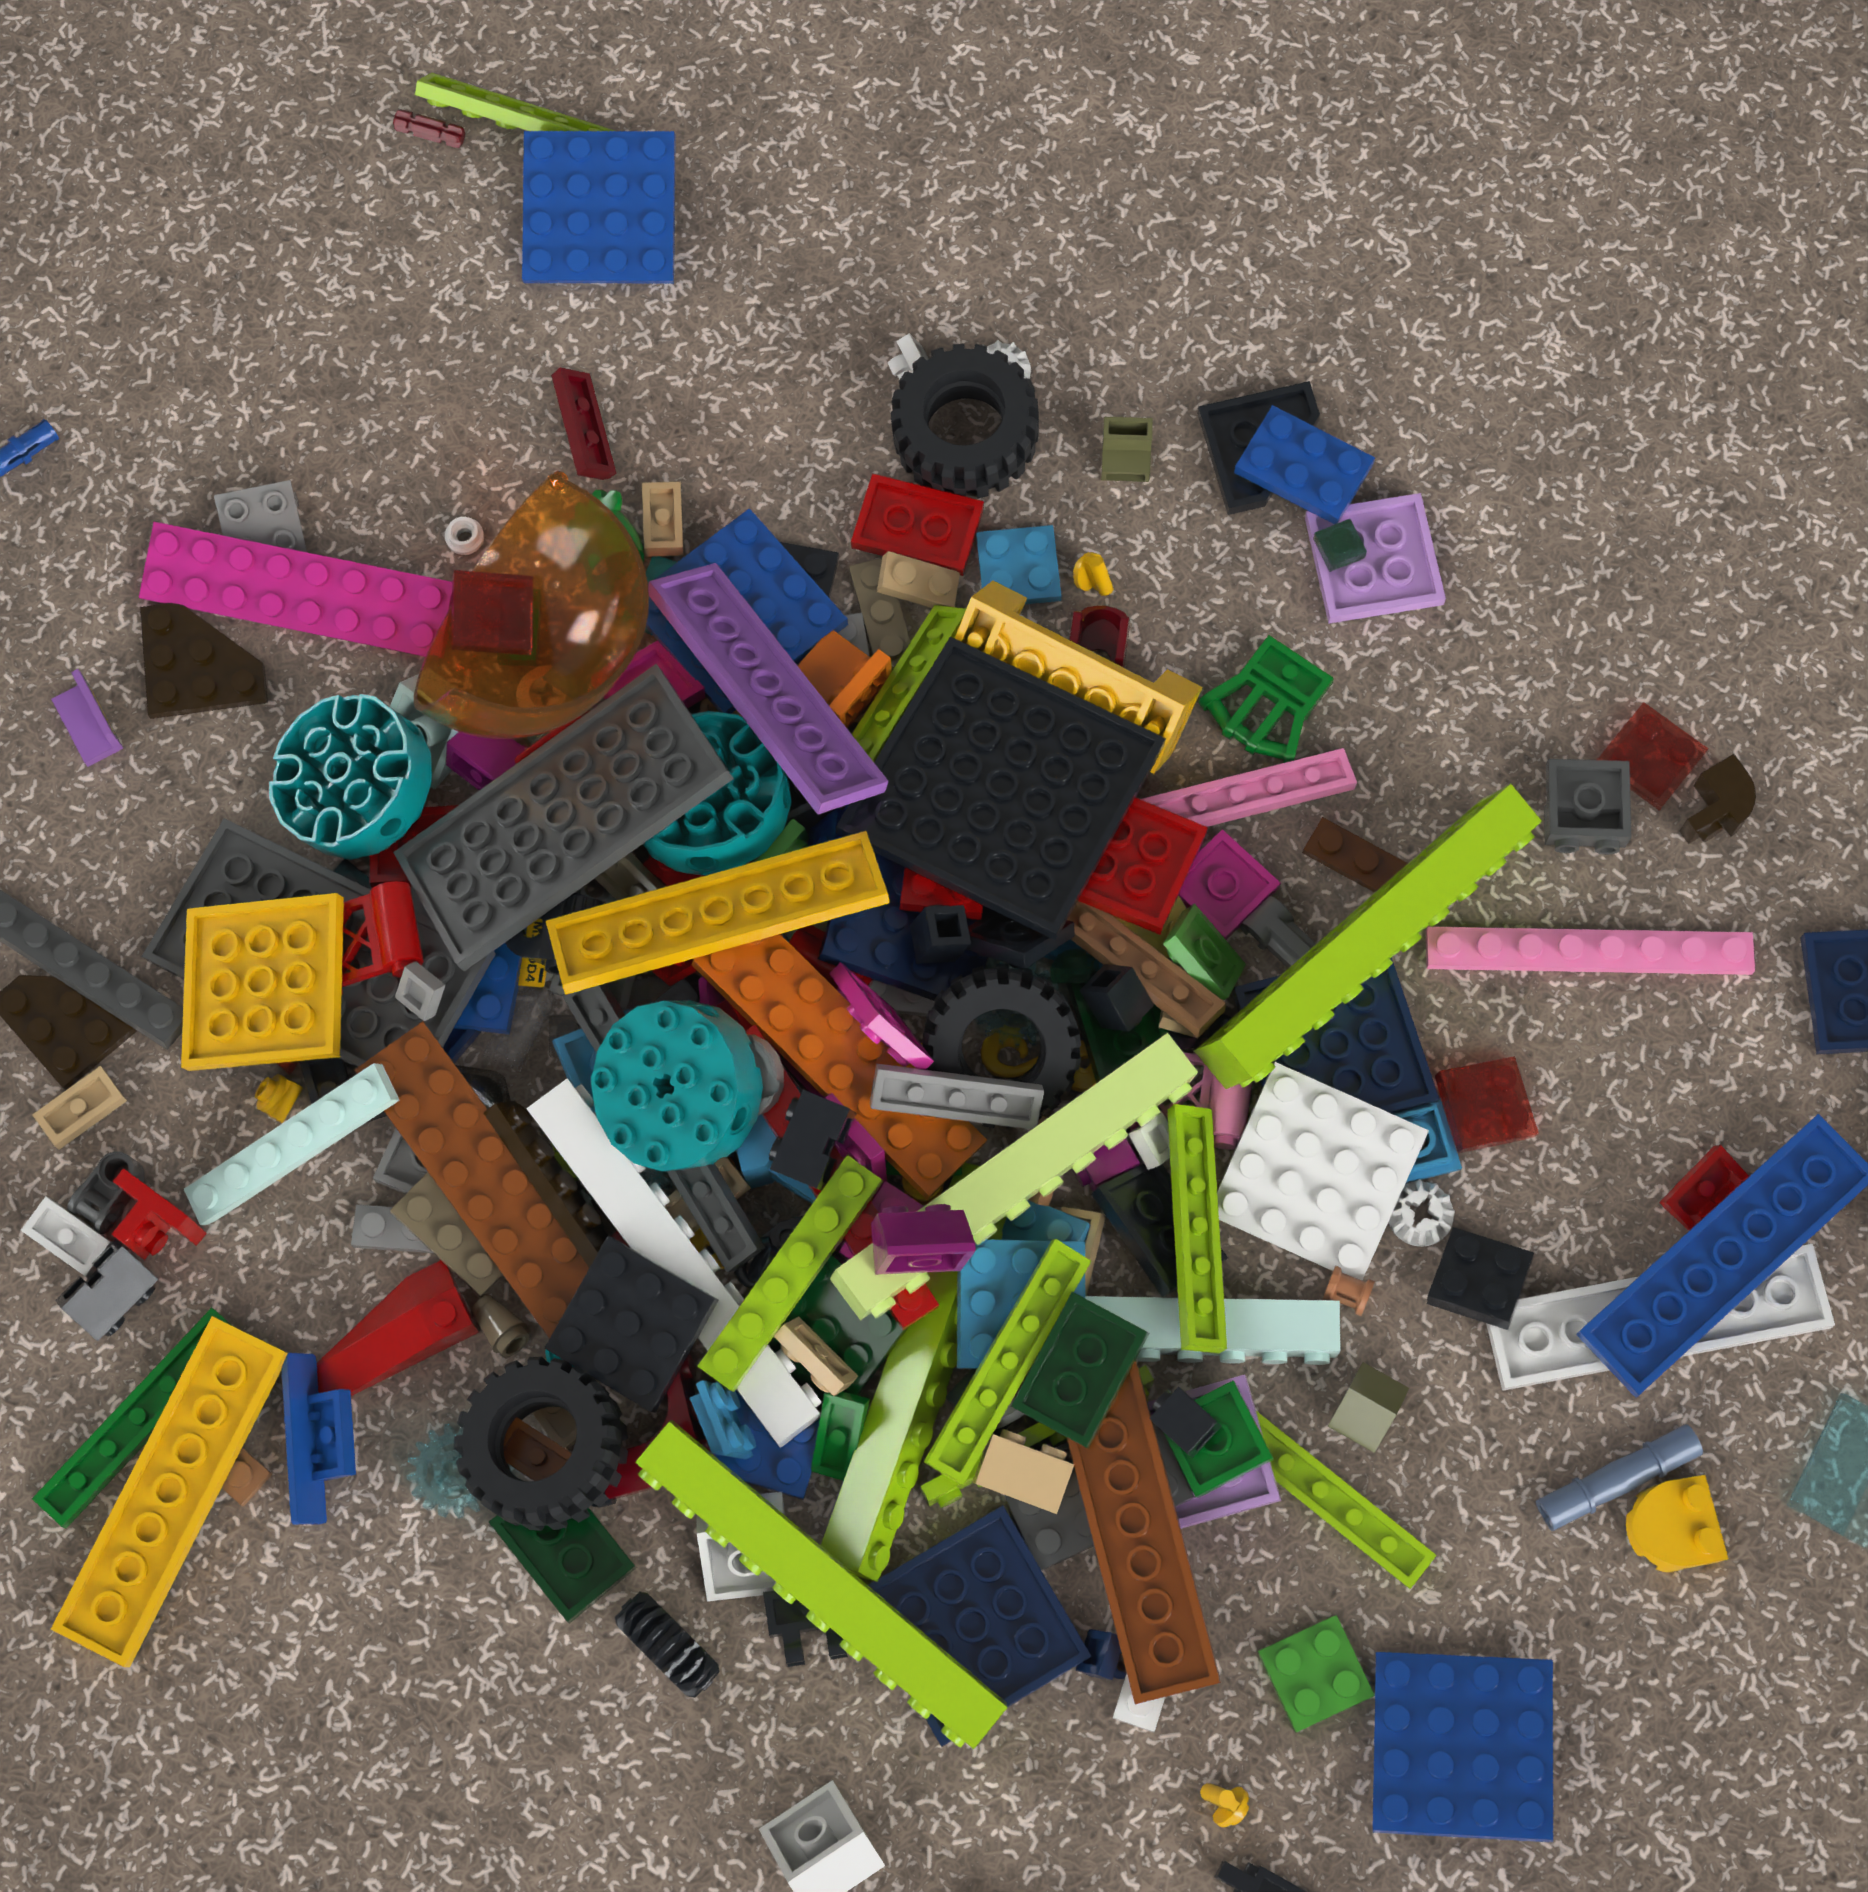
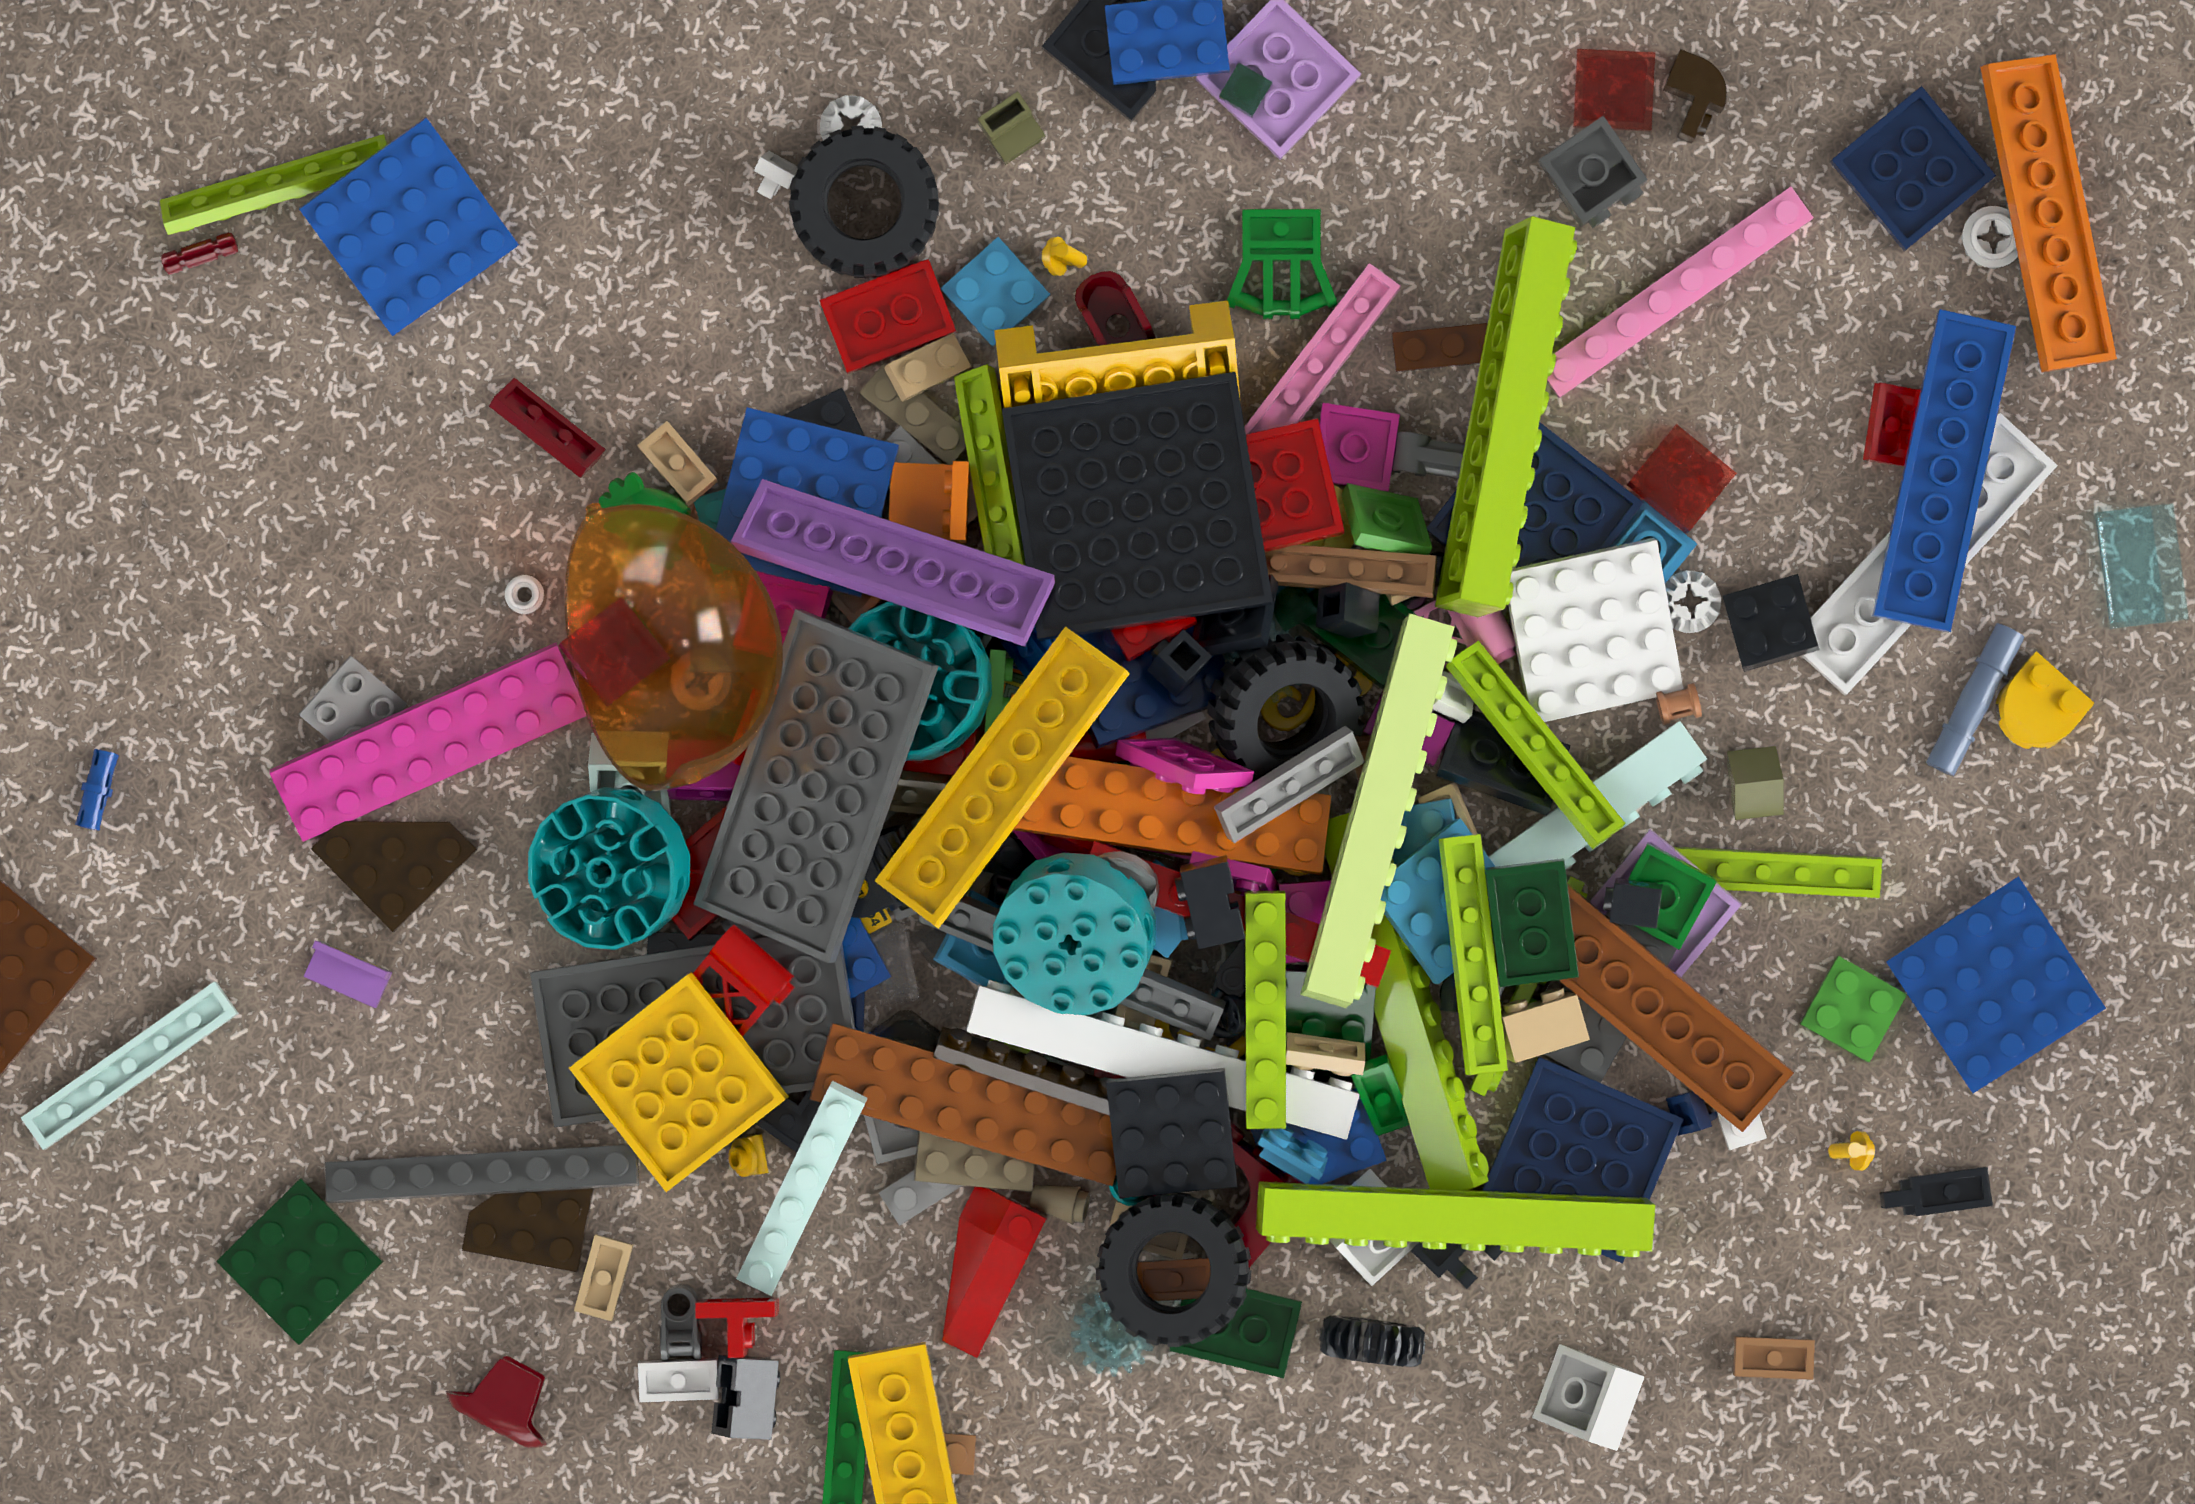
camera: 40 degrees left, 15 degrees up
(316, 1438) = (993, 1385): blue bracket -> none
(420, 991) = (811, 1001): light grey plate -> none
(921, 1240) = (1356, 922): magenta slope -> none

